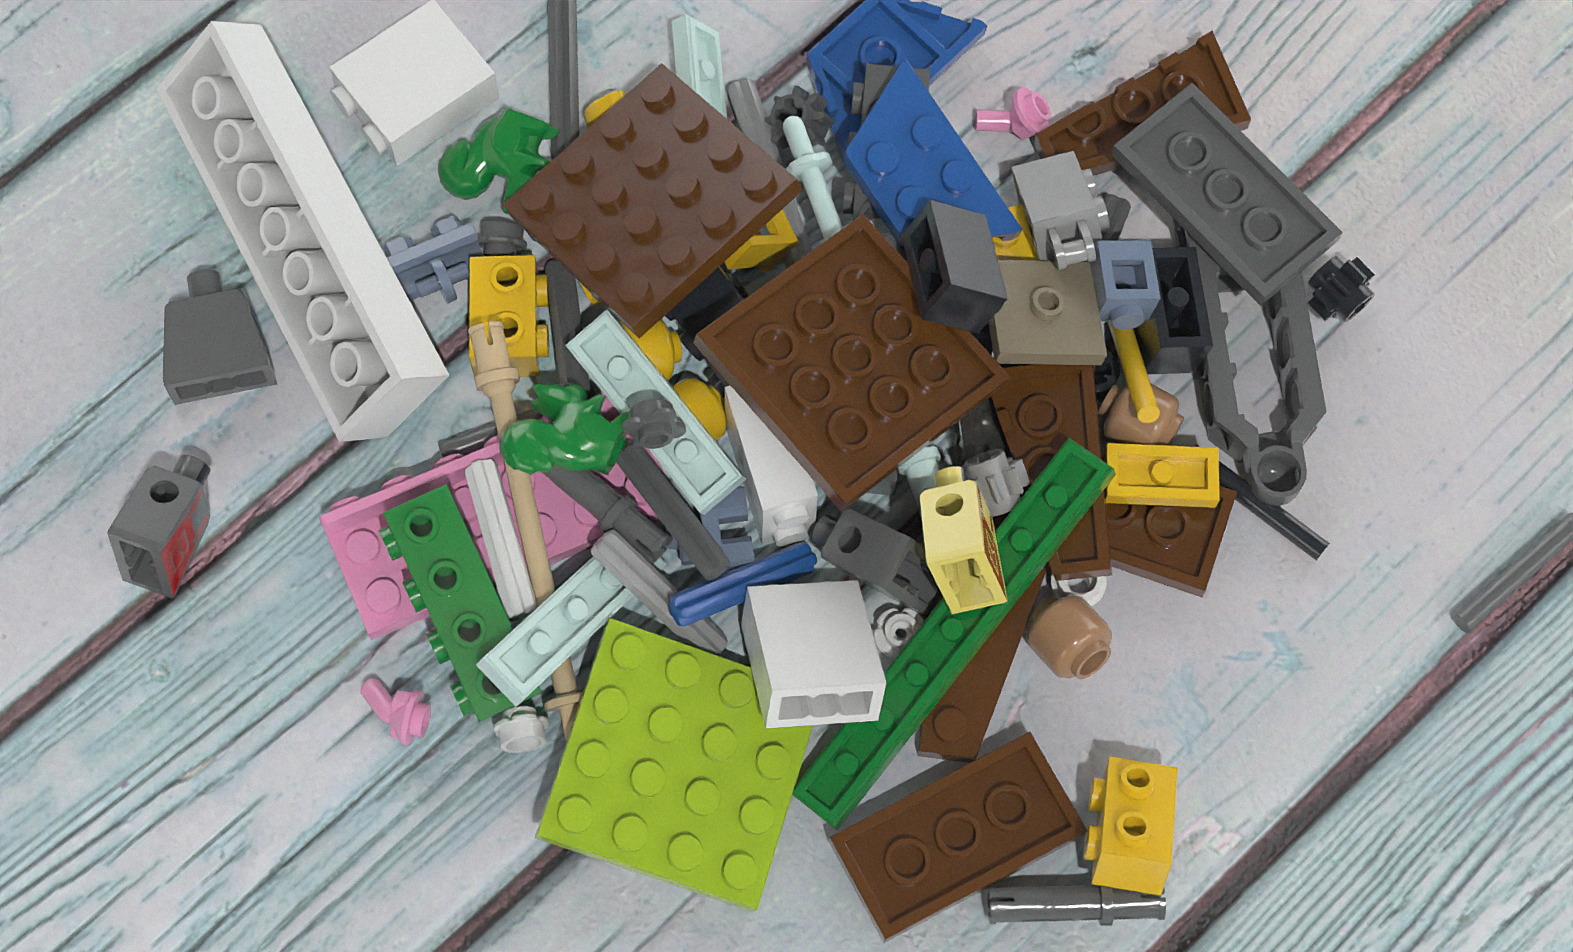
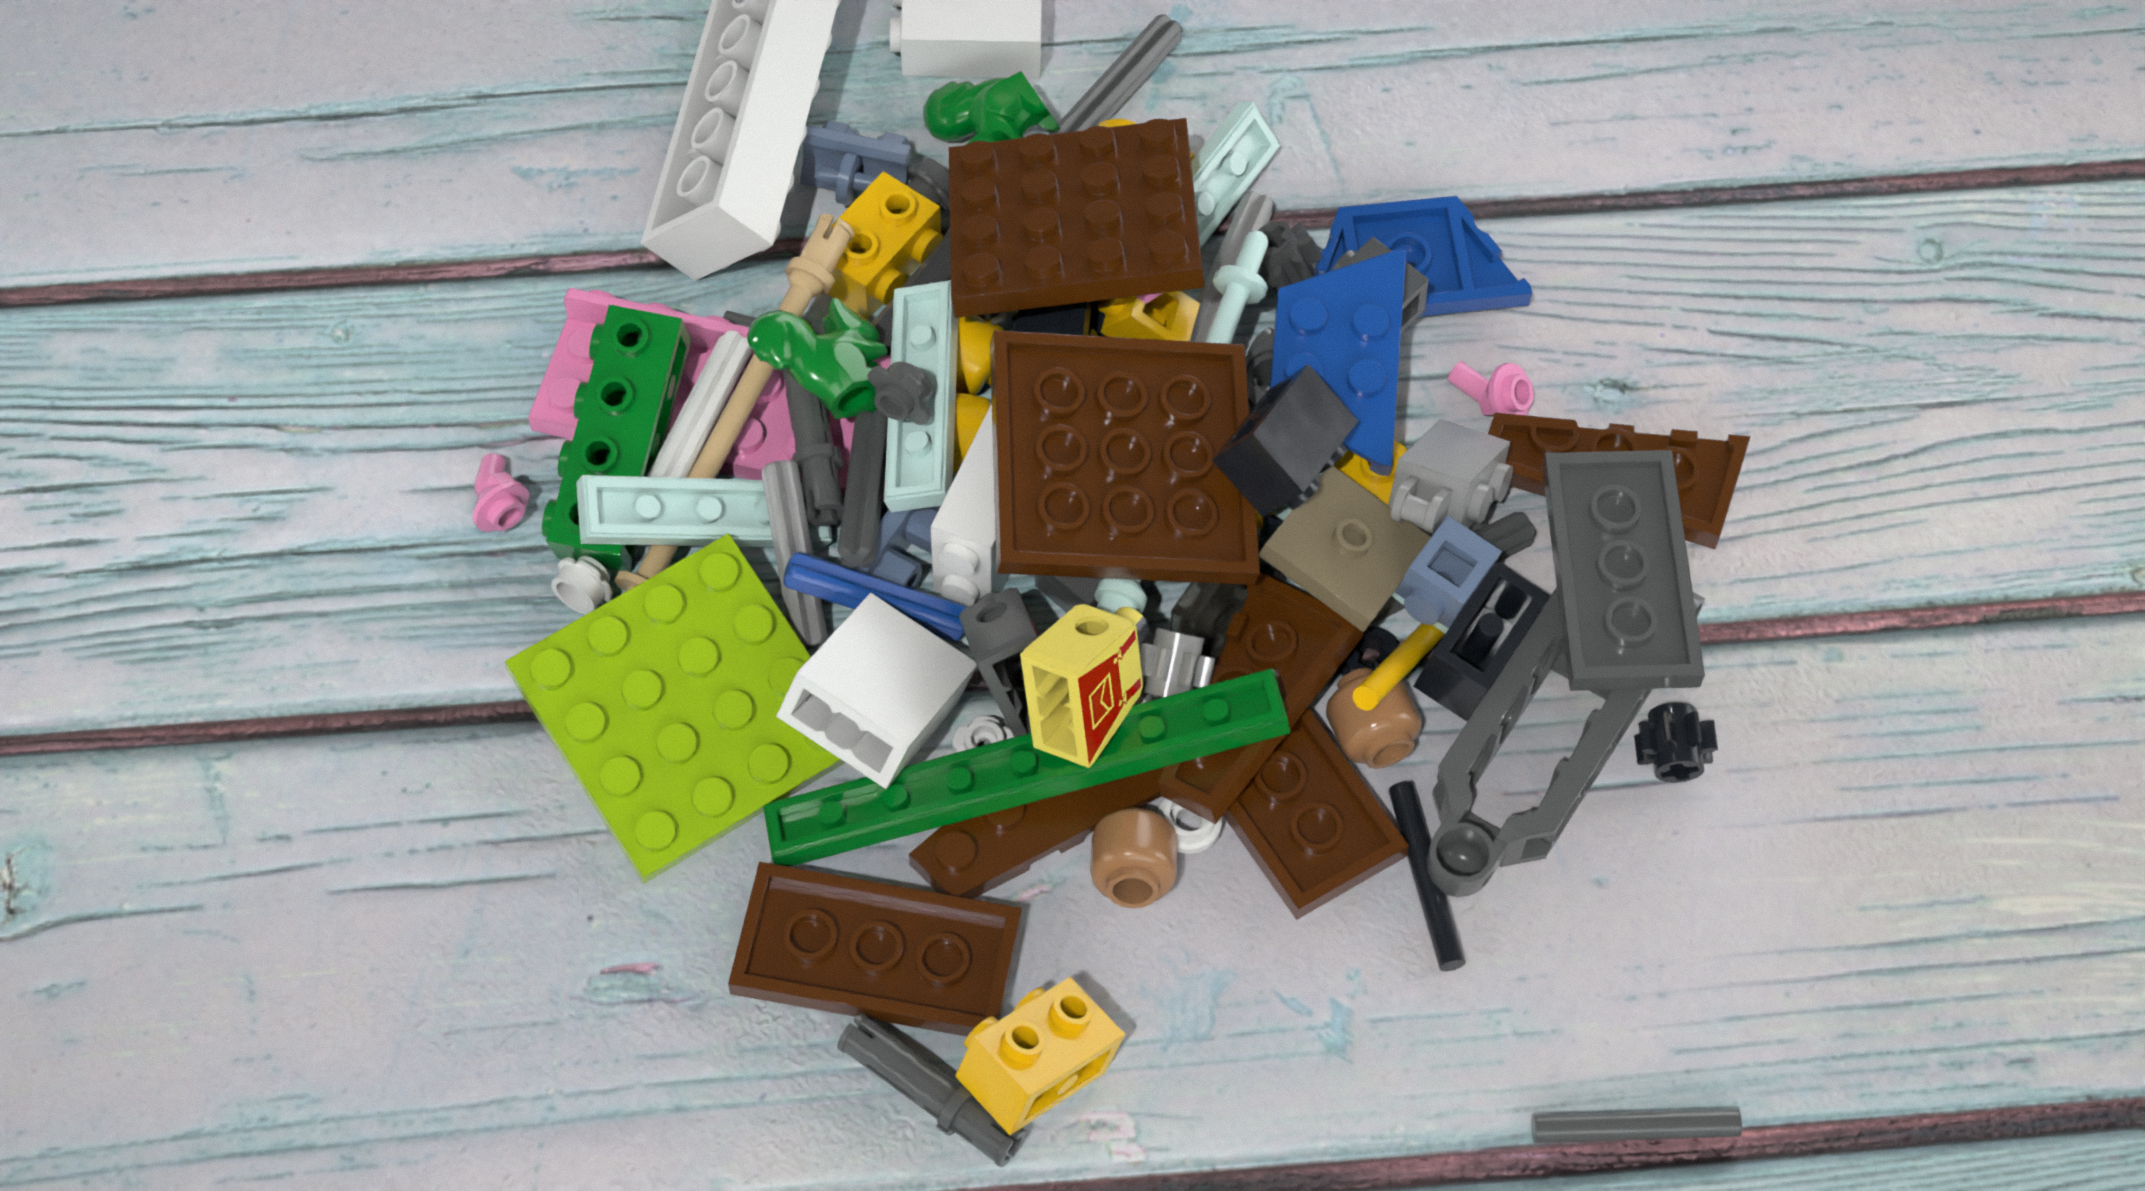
camera: 40 degrees right, 10 degrees down
(162, 526) = (438, 210): dark grey torso -> none
(212, 343) = (614, 104): dark grey torso -> none
(1163, 475) = (1341, 772): yellow plate -> none

